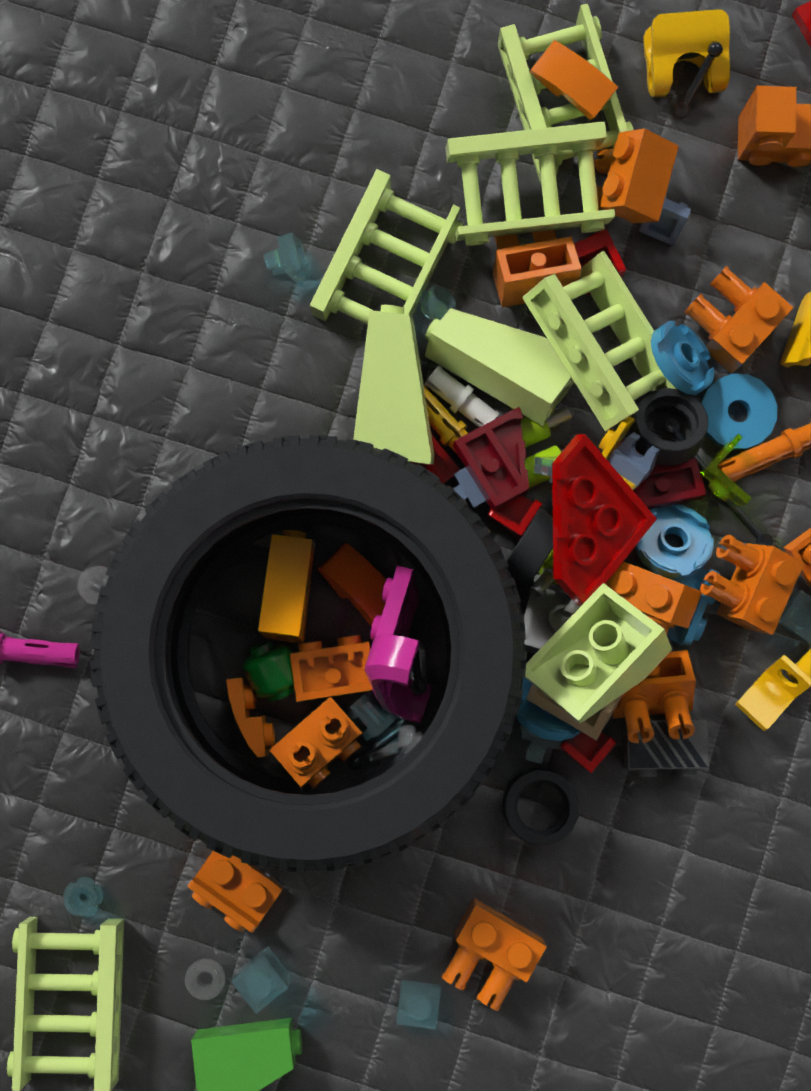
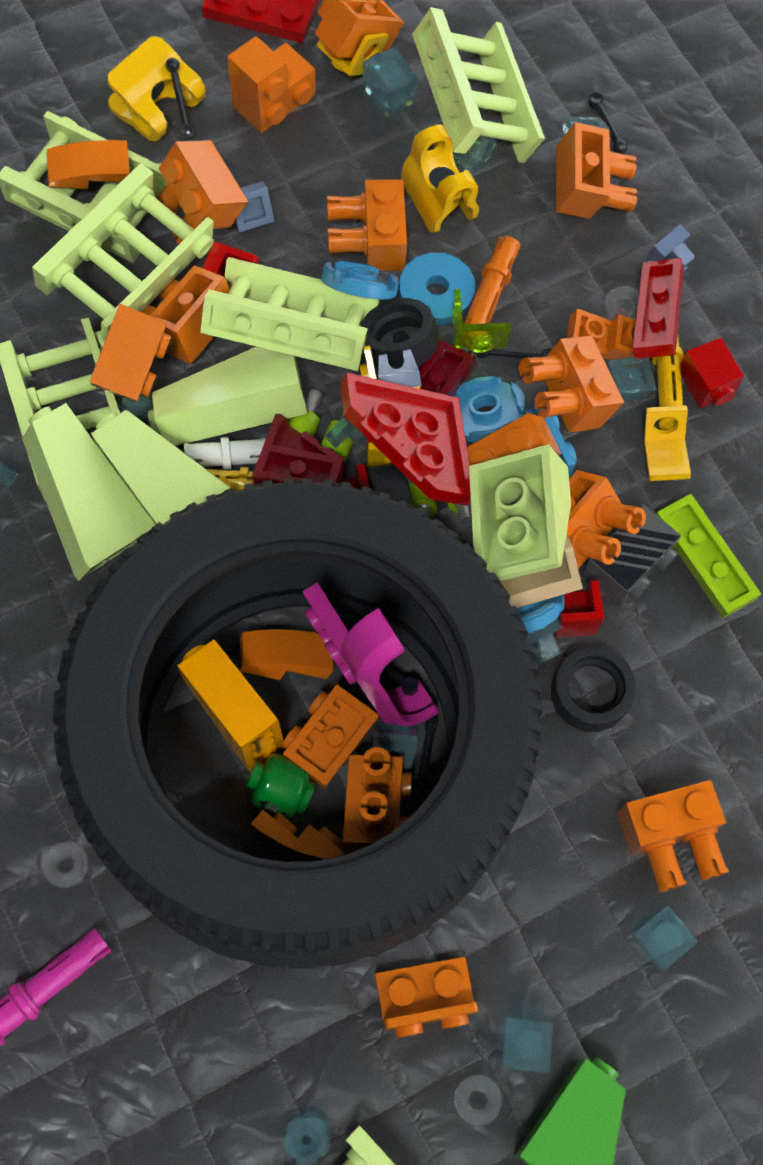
camera: 50 degrees left, 15 degrees down
(332, 342) = (83, 491): none -> yellowish green slope
(406, 741) = (444, 733): clear hand -> none
(453, 271) = (129, 354): none -> orange brick
(717, 795) = (709, 557): none -> lime plate

